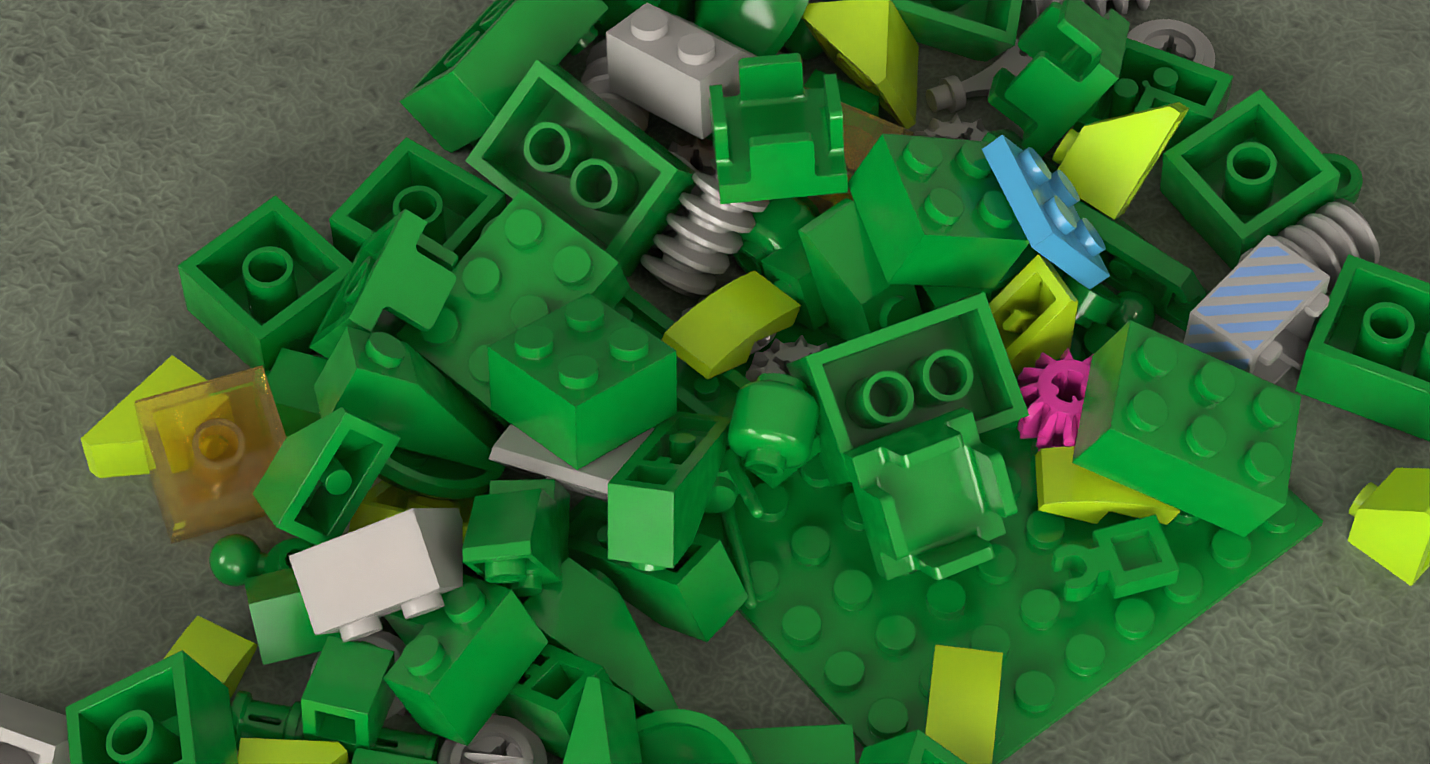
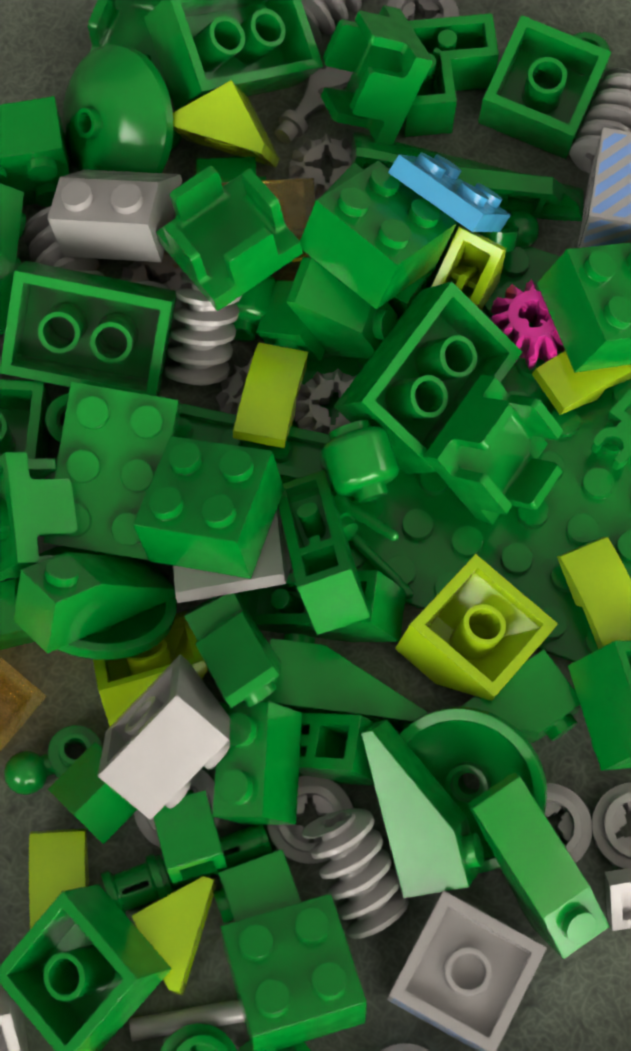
camera: 30 degrees left, 15 degrees up
(324, 475) = (70, 692): green slope -> none
(790, 664) = (475, 632): none -> lime slope
(1116, 155) = (457, 115): lime slope -> none

